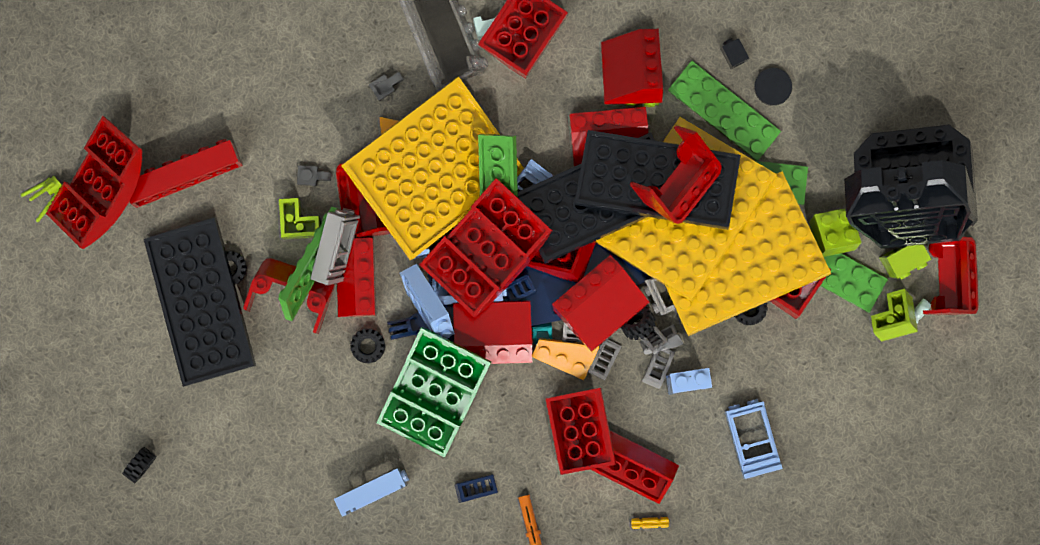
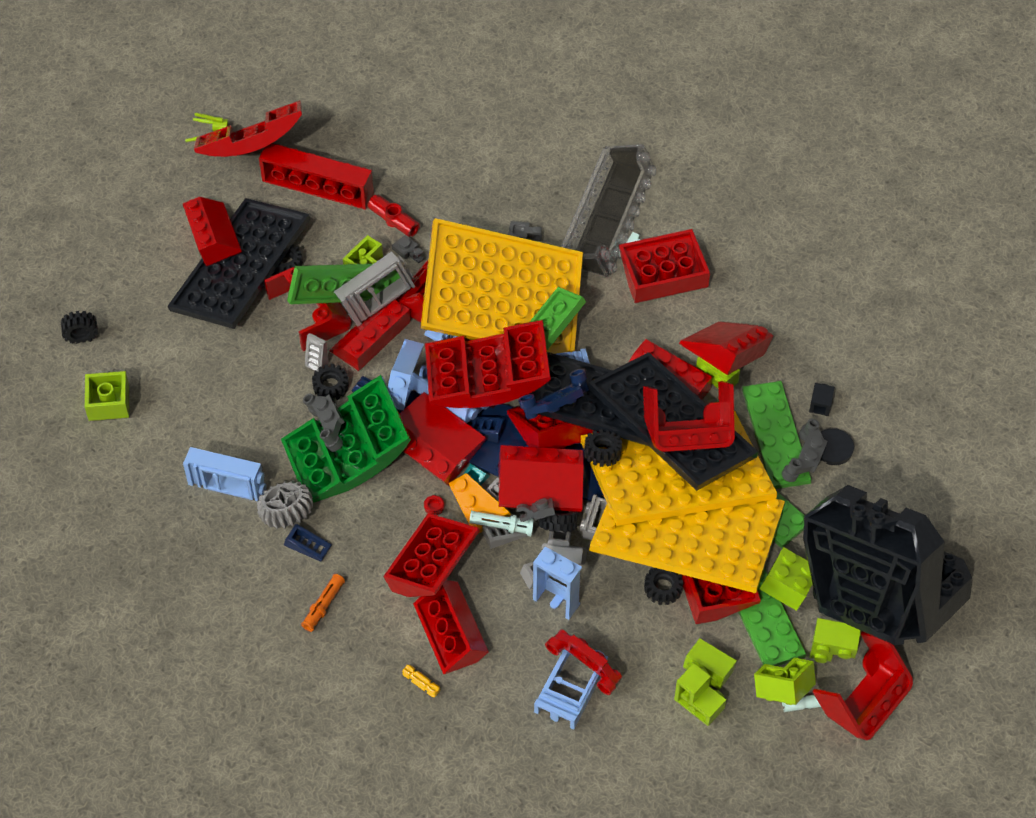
camera: 40 degrees right, 30 degrees down
(150, 293) = (211, 229): none -> red slope
(219, 502) = (107, 395): none -> lime brick
(260, 156) = (393, 215): none -> red piece
(338, 335) = (316, 352): none -> light grey slope
(403, 383) = (329, 417): none -> dark grey plate
(426, 488) = (284, 504): none -> light grey gear
(535, 380) = (434, 505): none -> red tile
(568, 236) = (557, 399): none -> dark blue plate
(608, 354) = (475, 518): none -> light aqua pin
(622, 234) = (599, 455): none -> black tyre
(625, 332) = (538, 510): none -> dark grey plate
(765, 110) = (809, 454): none -> dark grey plate
(778, 416) = (593, 659): none -> red plate
(833, 345) = (717, 663): none -> lime brick
(847, 376) = (697, 697): none -> lime brick

